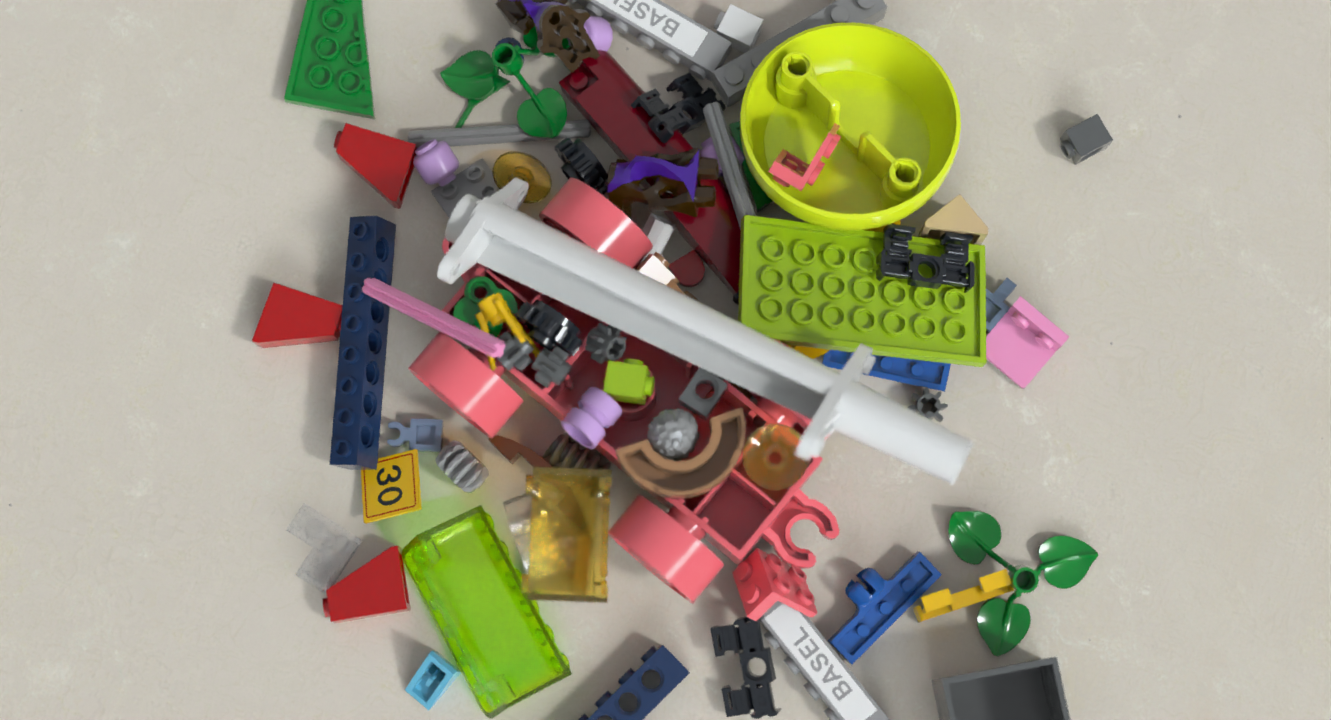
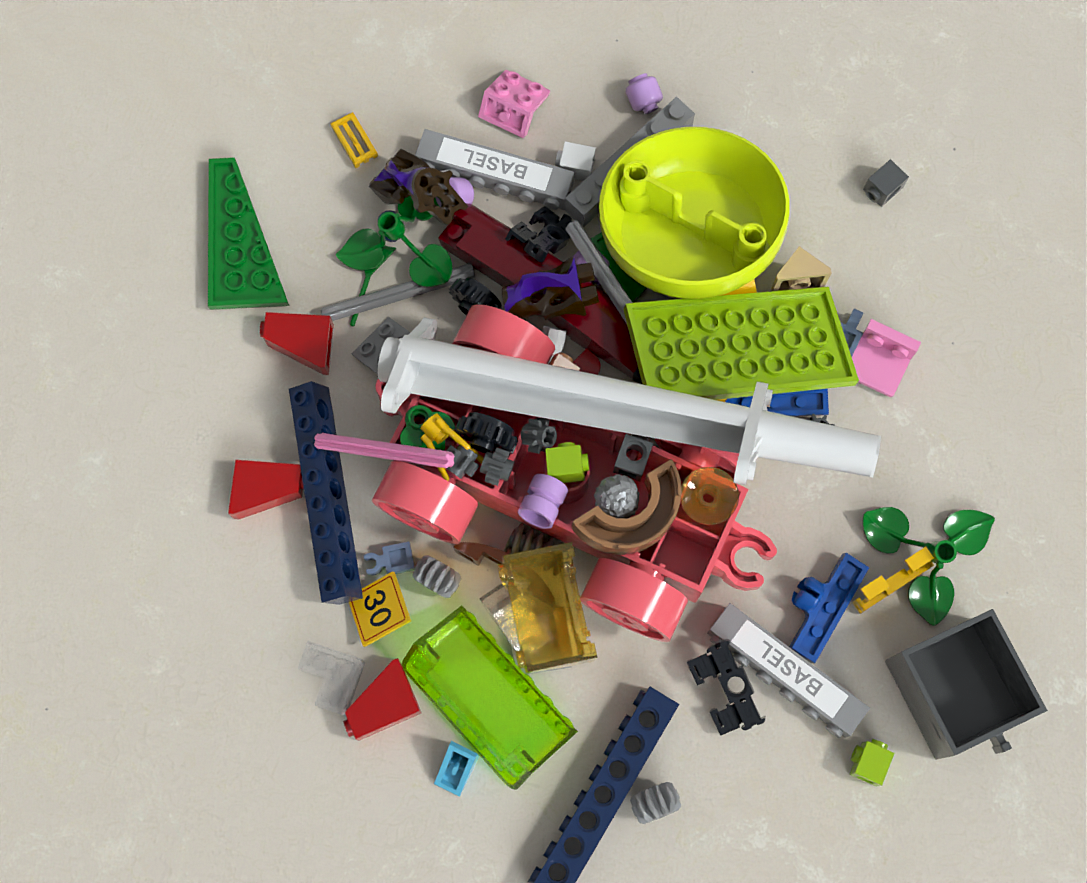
camera: 15 degrees left, 5 degrees down
(436, 162) = (350, 327): lavender head -> none
(526, 168) = (414, 313): clear yellow dish -> none
(767, 579) = (724, 608): coral bracket -> none
(793, 171) = (655, 259): coral bracket -> none
(946, 269) = (804, 310): black piece -> none

